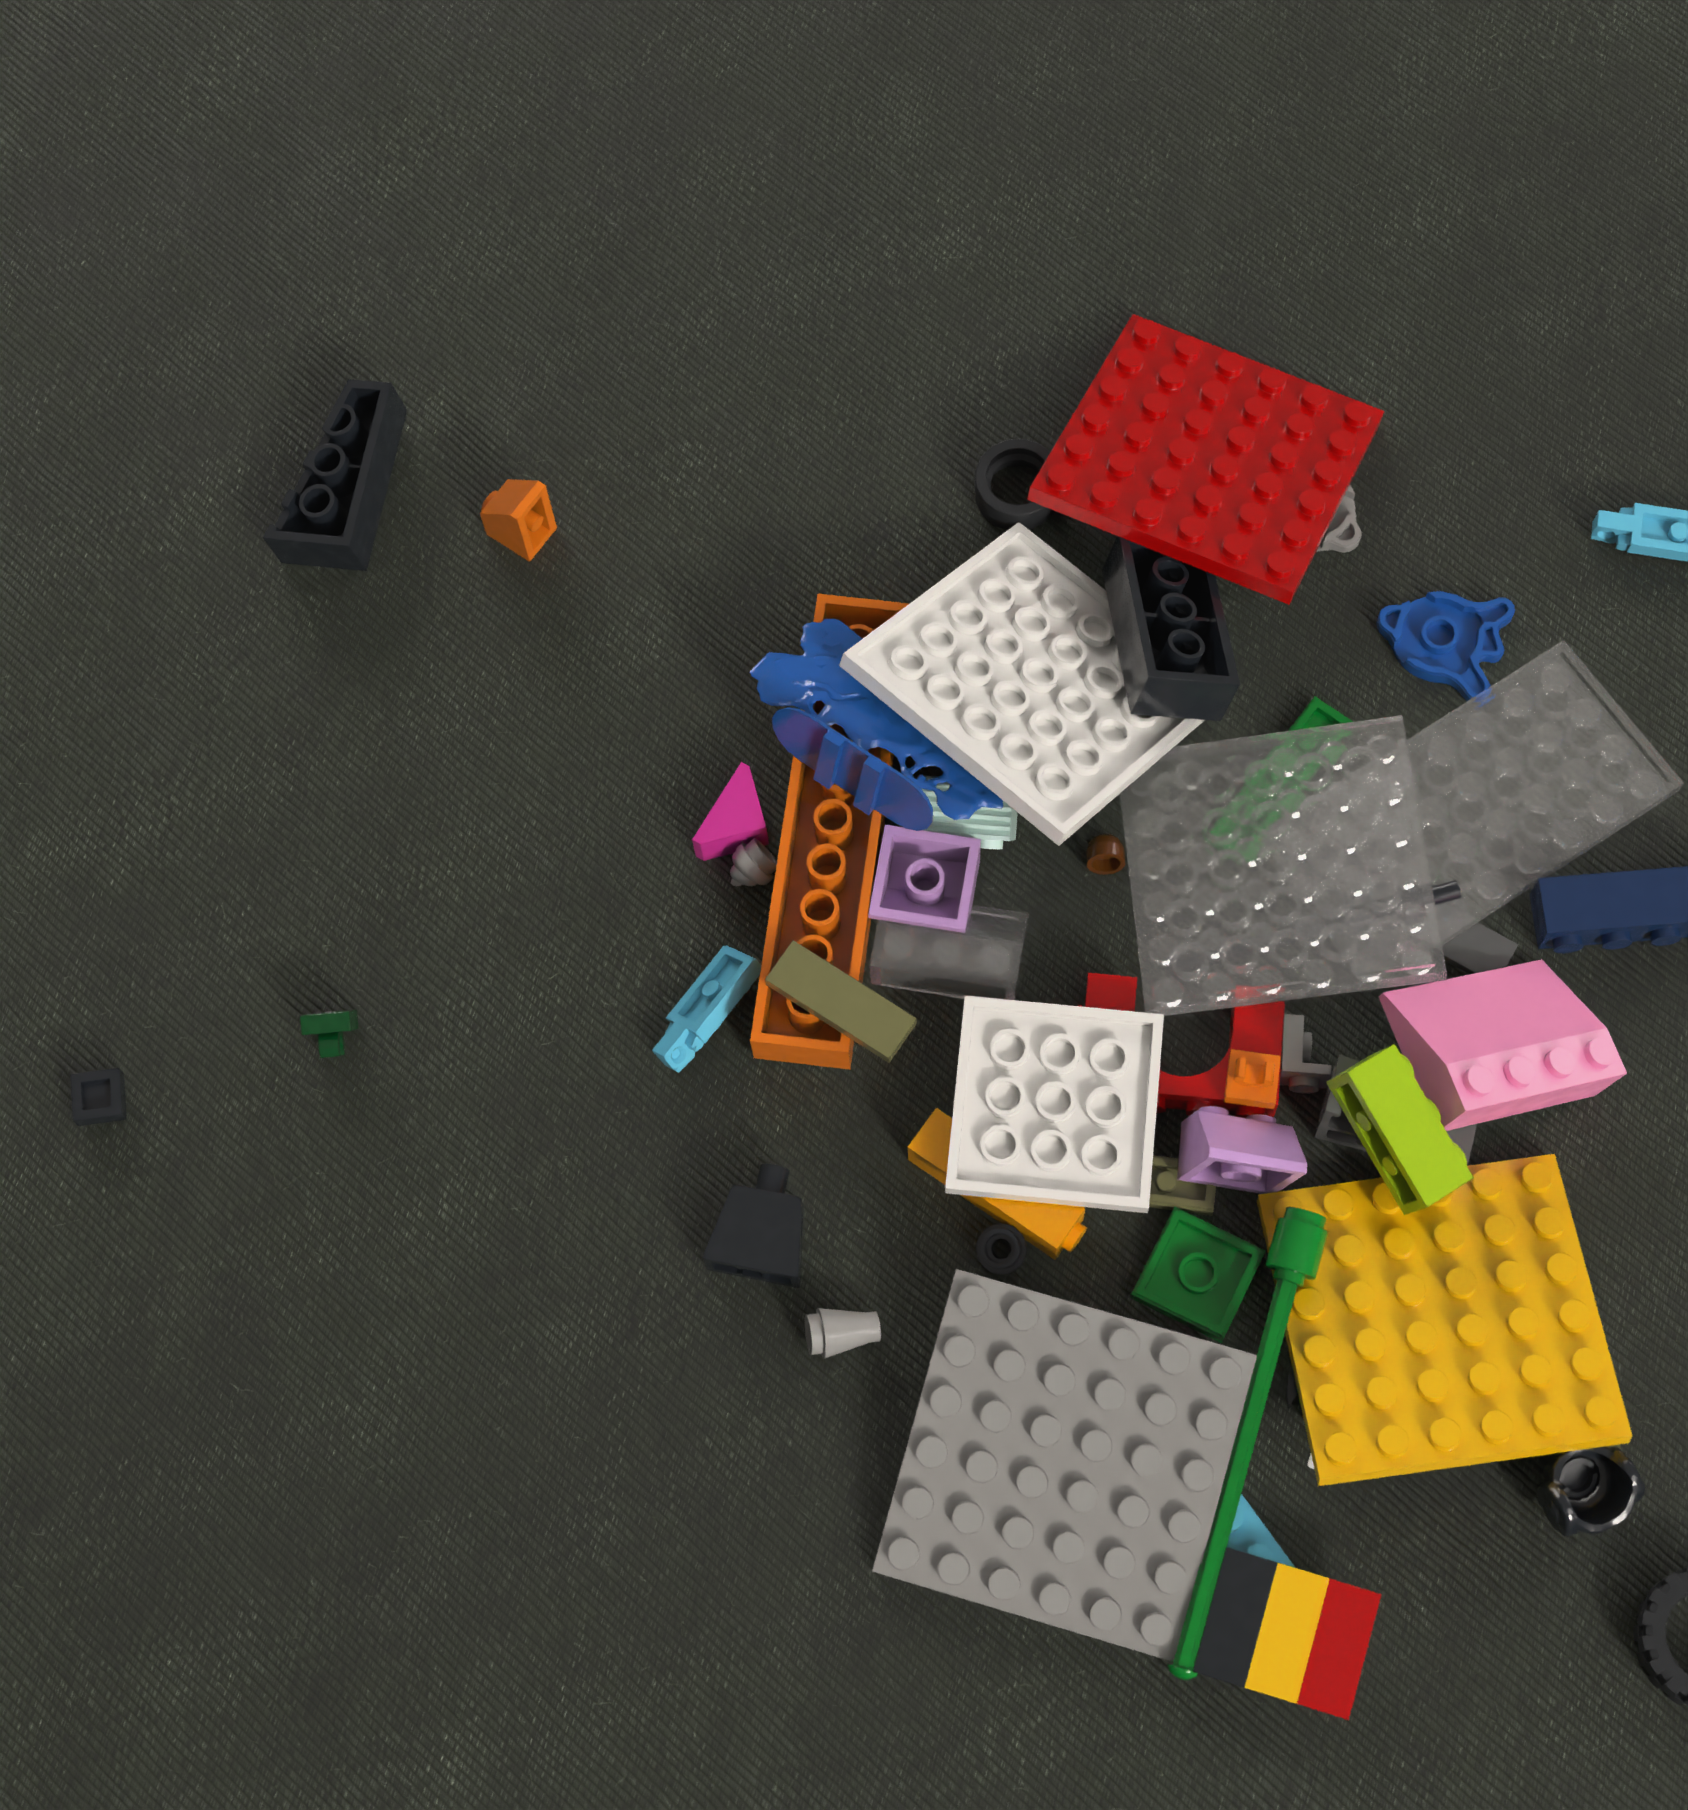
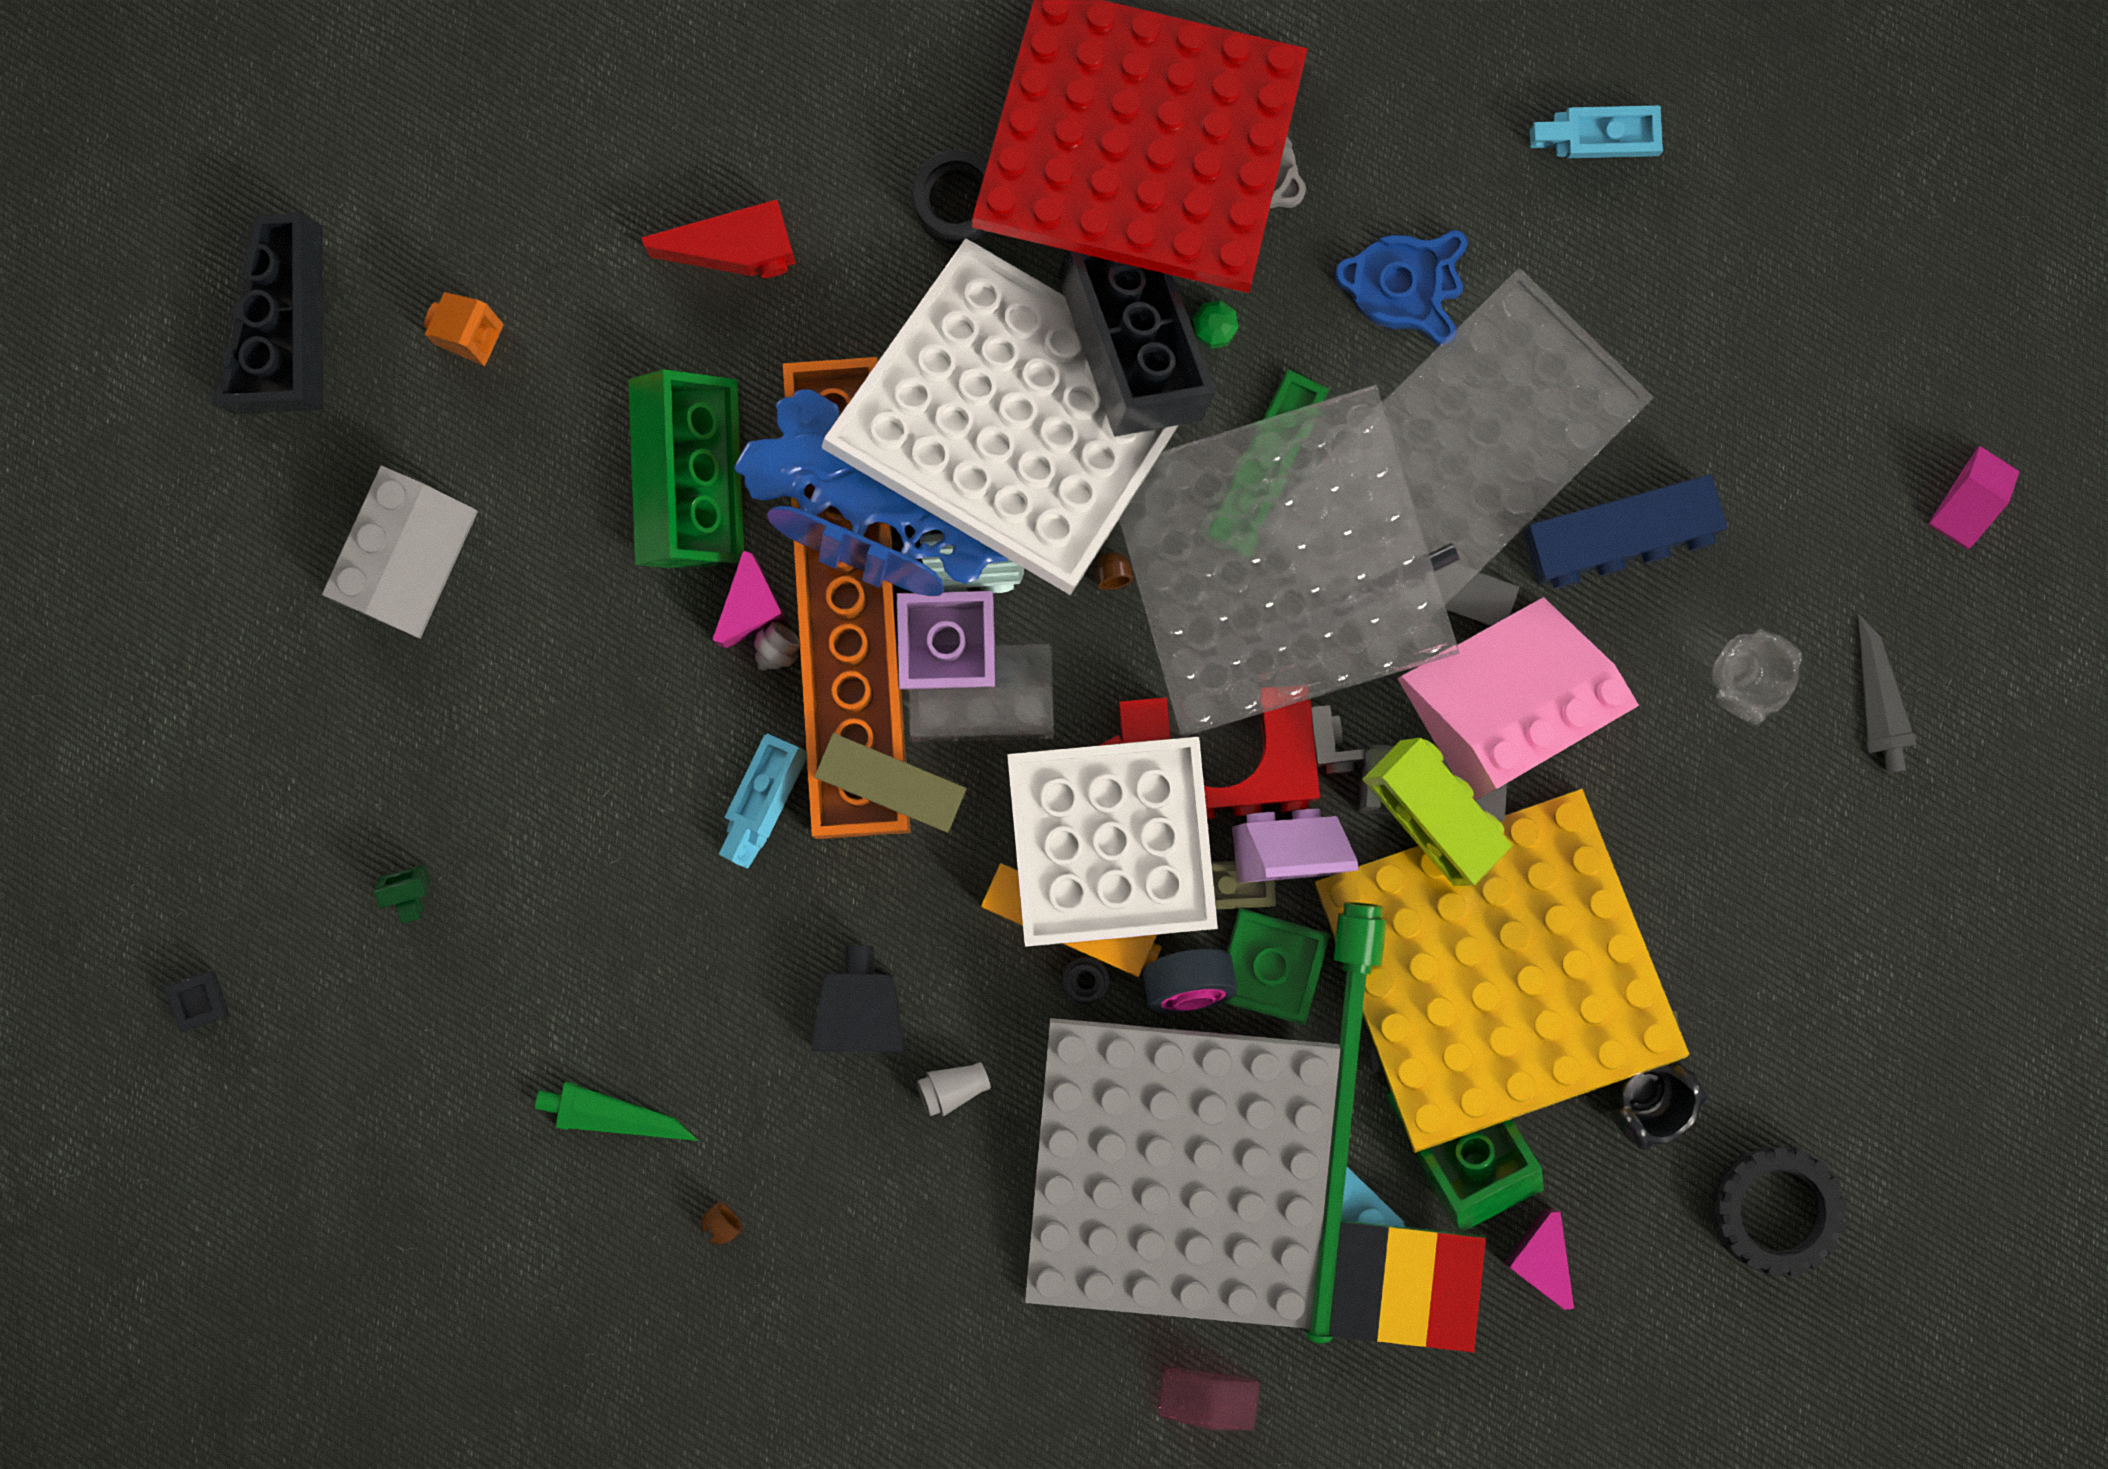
camera: 15 degrees left, 15 degrees up
(406, 709) = (400, 552): none -> light grey slope
(469, 1286) = (597, 1112): none -> green bar
(572, 1423) = (722, 1223): none -> reddish brown hinge
(700, 683) = (685, 470): none -> green slope
(795, 488) = (737, 242): none -> red slope
(1051, 1717) = (1209, 1400): none -> clear pink slope
(1110, 1263) = (1189, 981): none -> black wheel
(1251, 643) = (1215, 324): none -> green tile
(1252, 1079) = (1292, 779): orange tile -> none
(1384, 1524) = (1480, 1172): none -> green slope
(1440, 1640) = (1542, 1259): none -> dark pink slope

